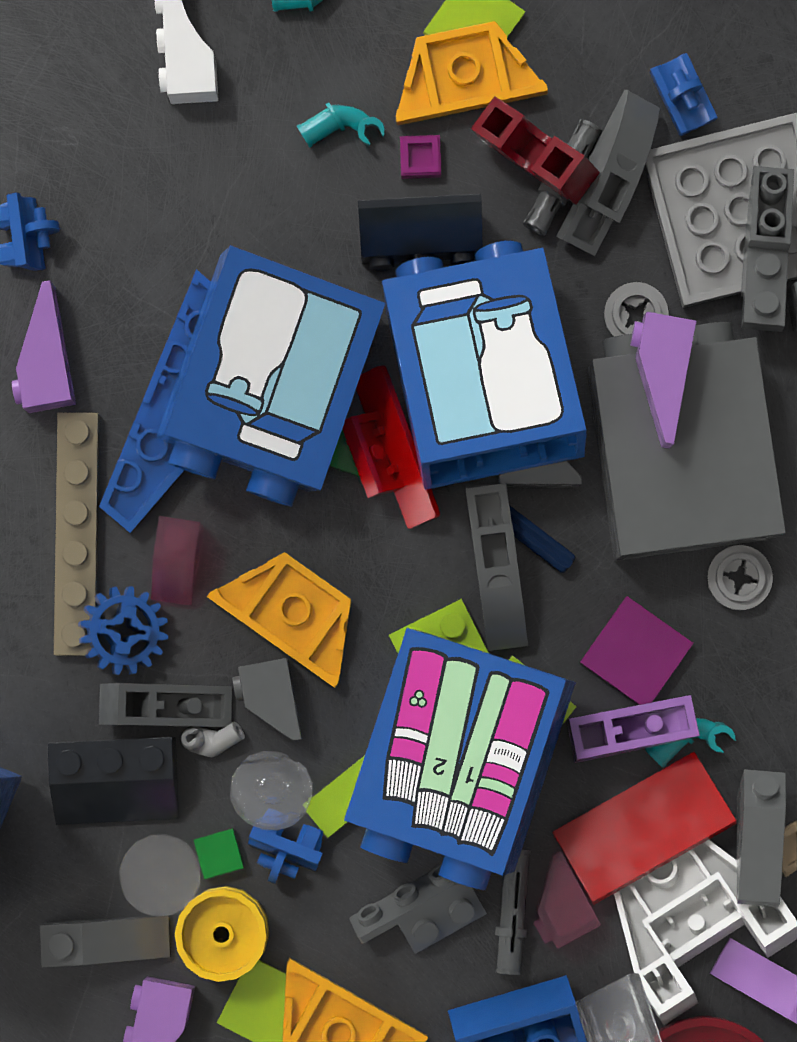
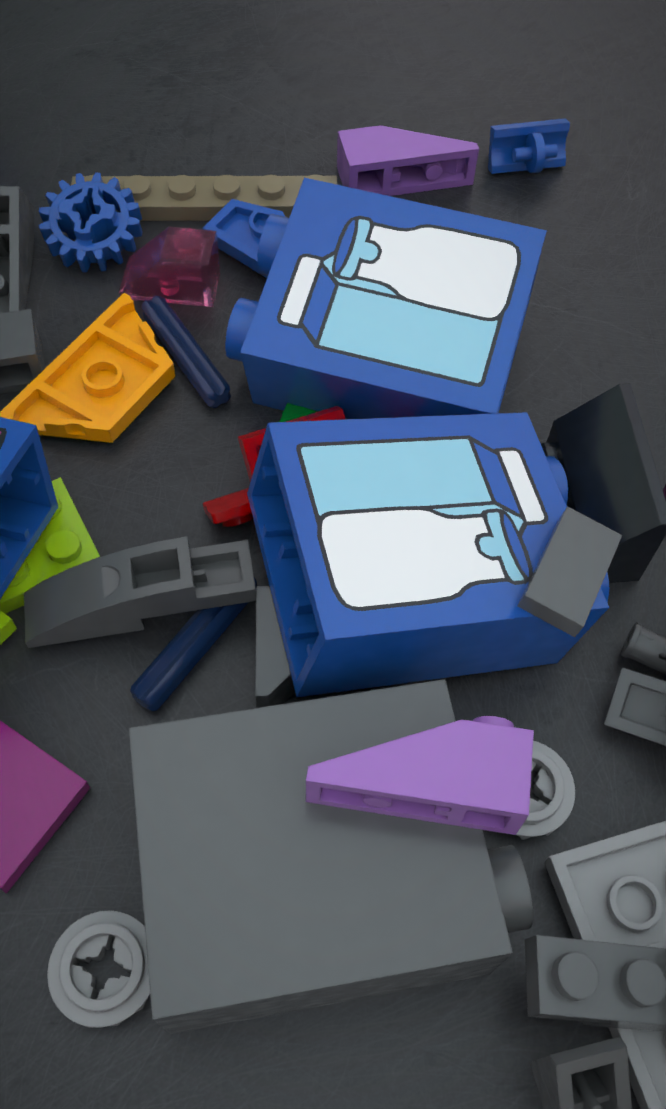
camera: 85 degrees right, 25 degrees down
(260, 545) = (186, 351): none -> dark blue axle
(522, 270) = (570, 572): none -> dark grey tile

